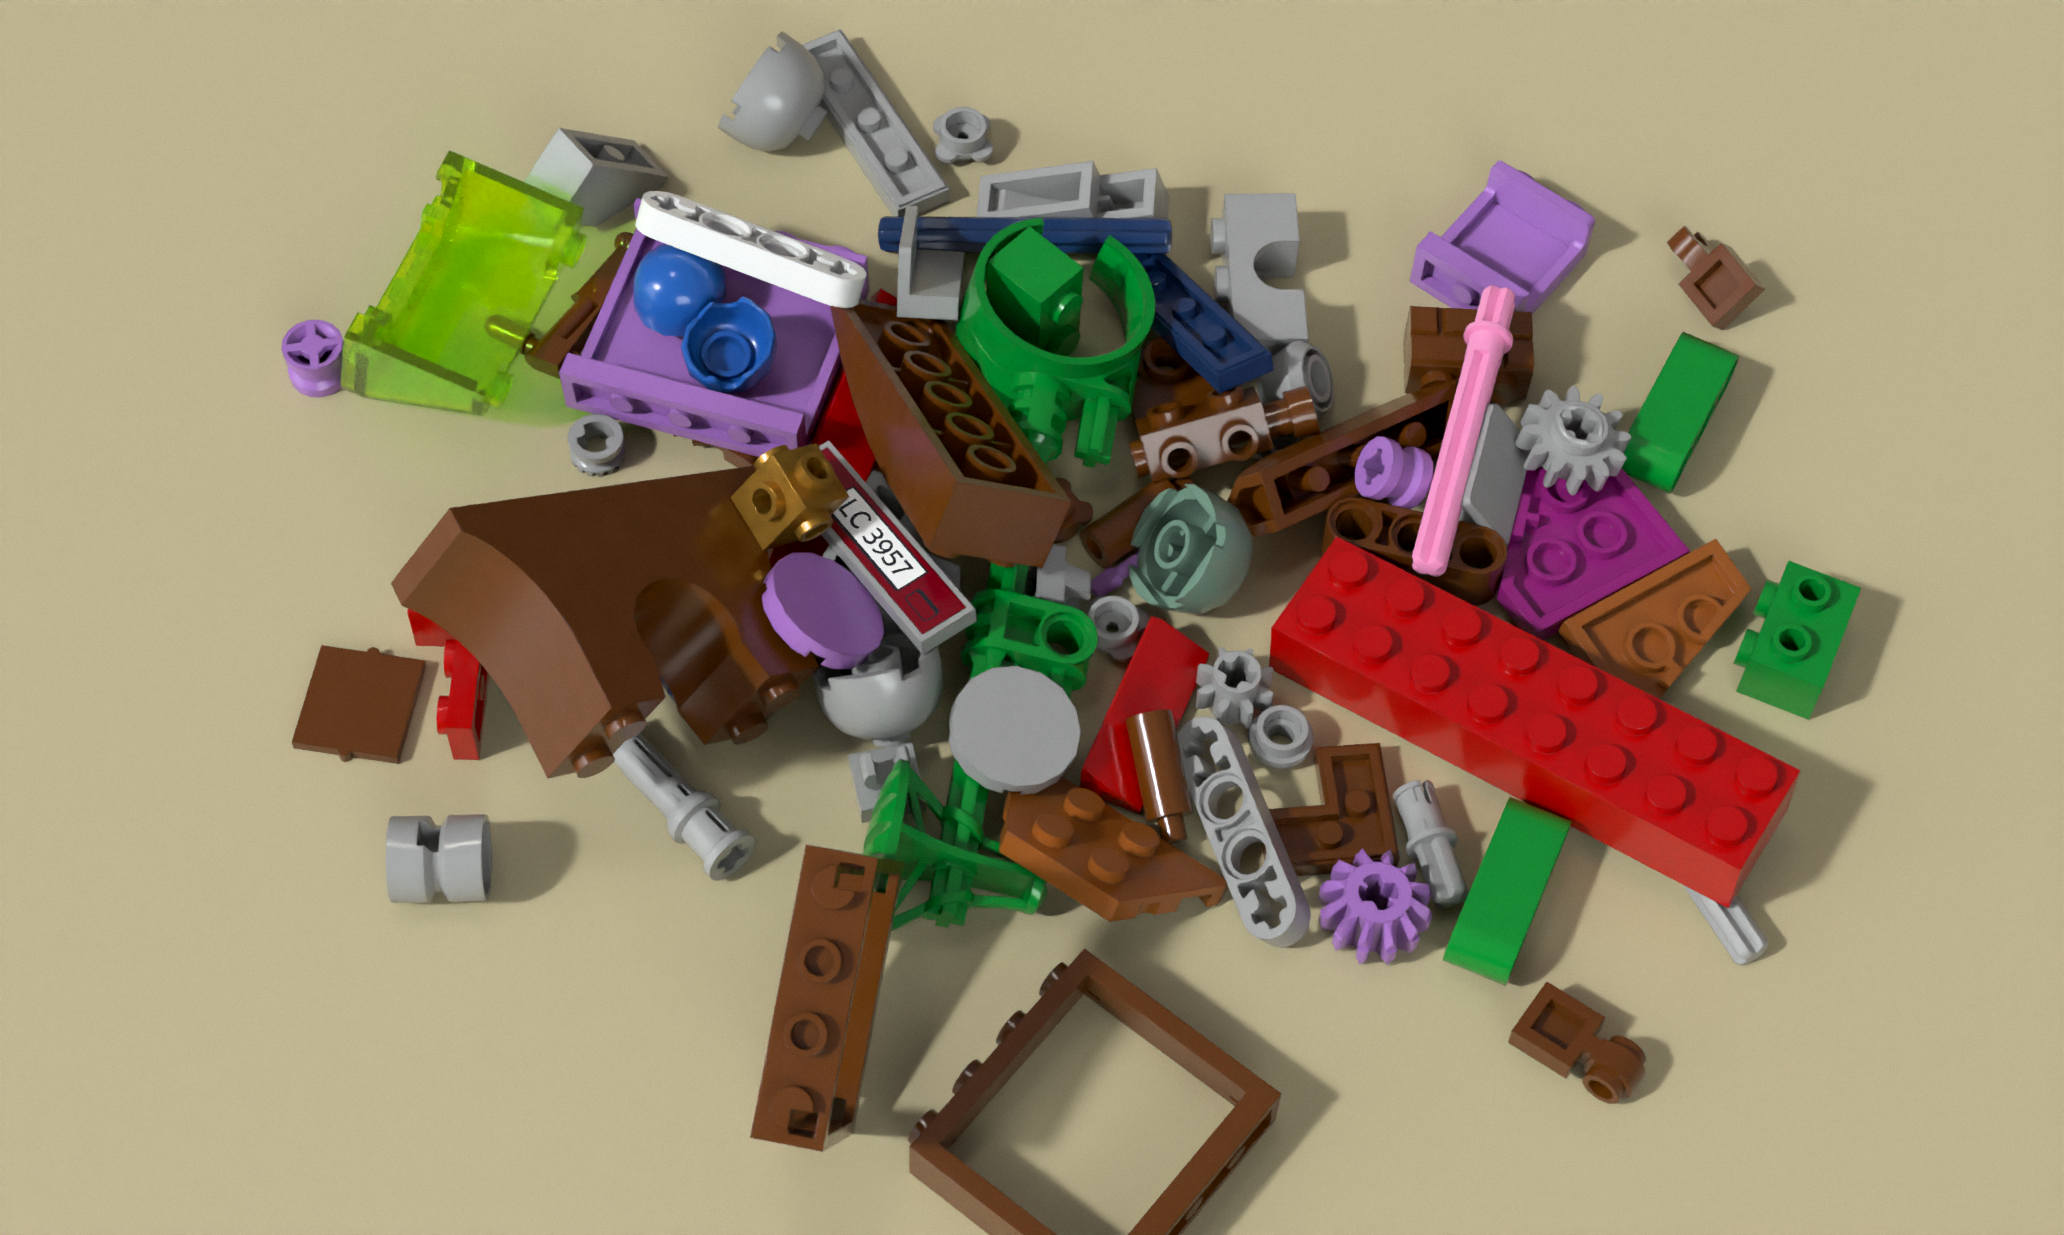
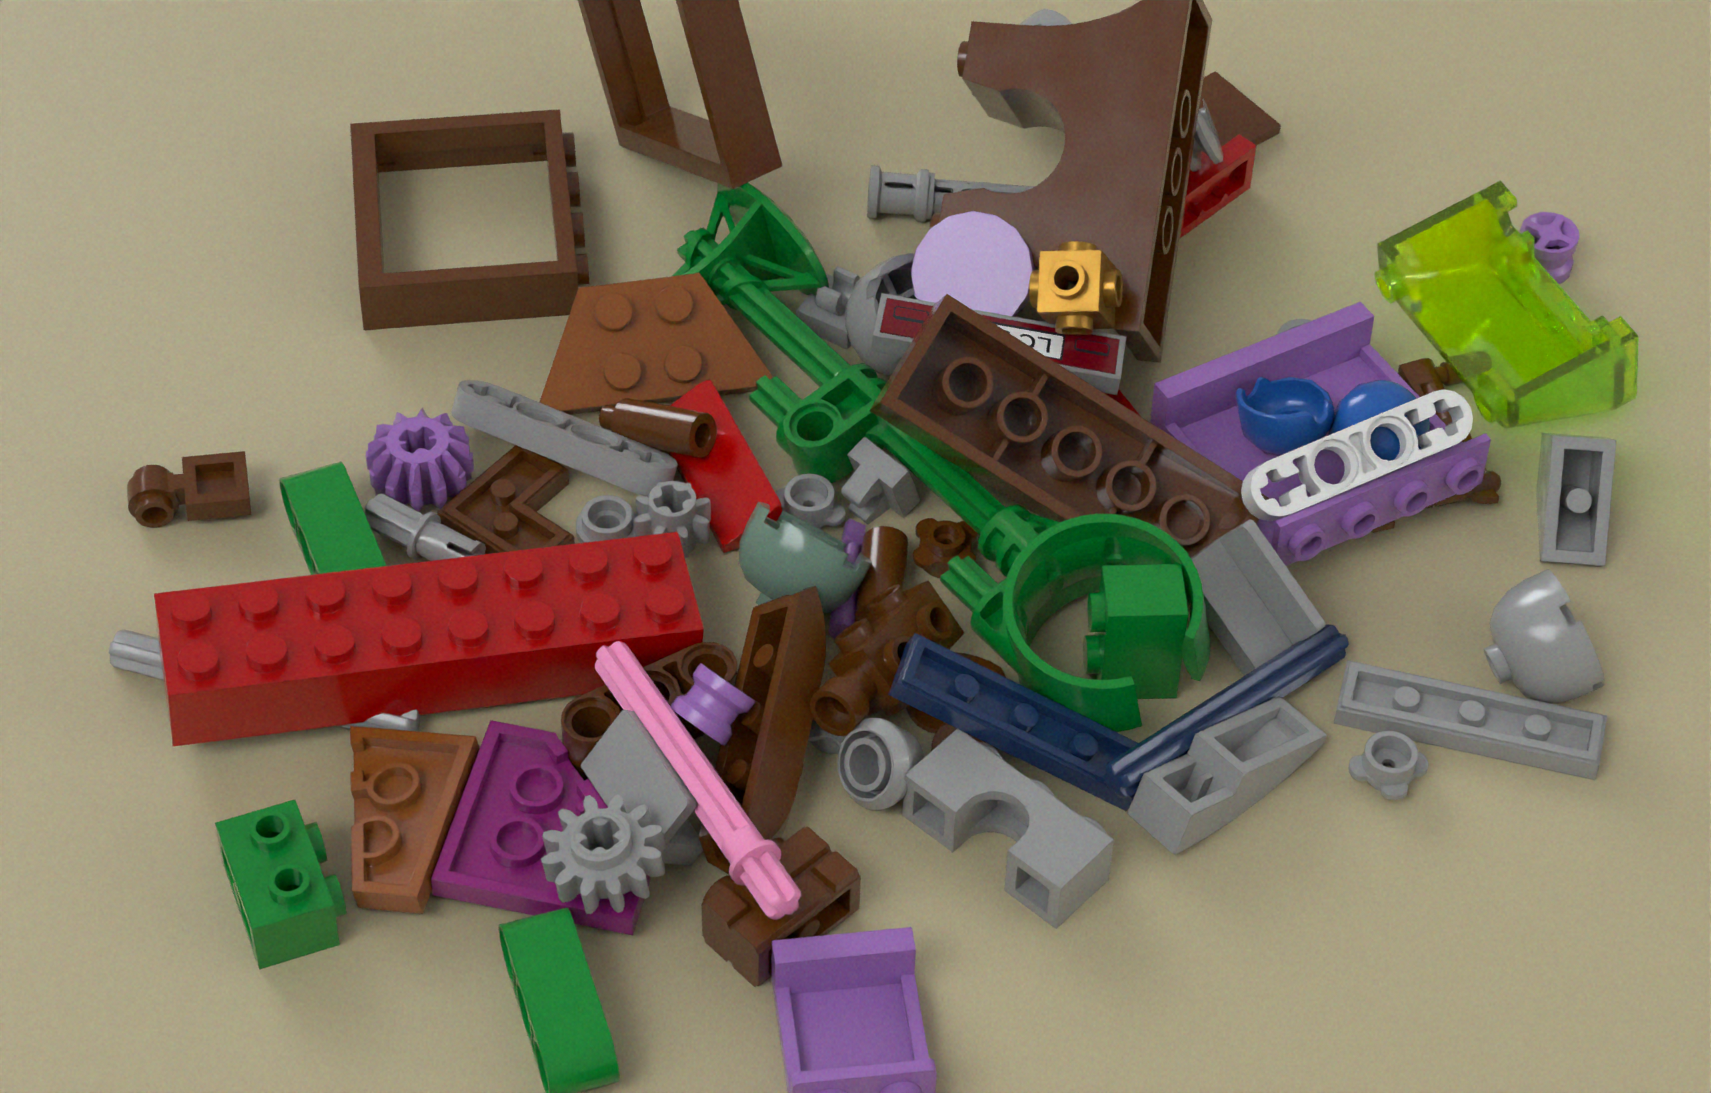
camera: 135 degrees right, 10 degrees down
(1014, 730) = (772, 338): light grey tile -> none

